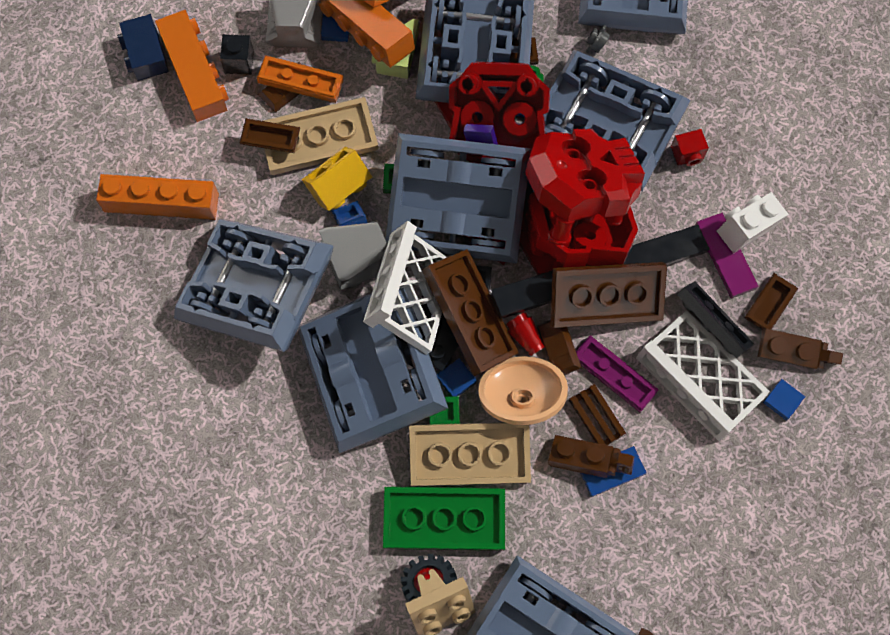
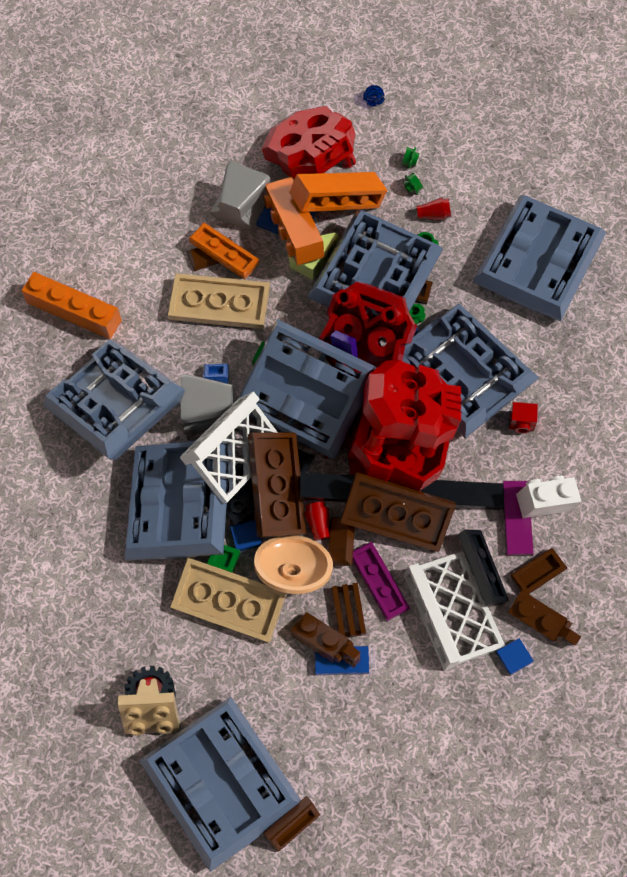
camera: 25 degrees right, 5 degrees down
(143, 47) = (111, 184): dark blue brick -> none
(191, 65) = (143, 211): orange brick -> none
(237, 54) = (182, 214): black brick -> none
(269, 135) = (178, 287): reddish brown tile -> none
(337, 179) = (218, 340): yellow brick -> none
(444, 518) = (186, 645): green plate -> none
(597, 39) = (483, 301): dark grey plate -> none

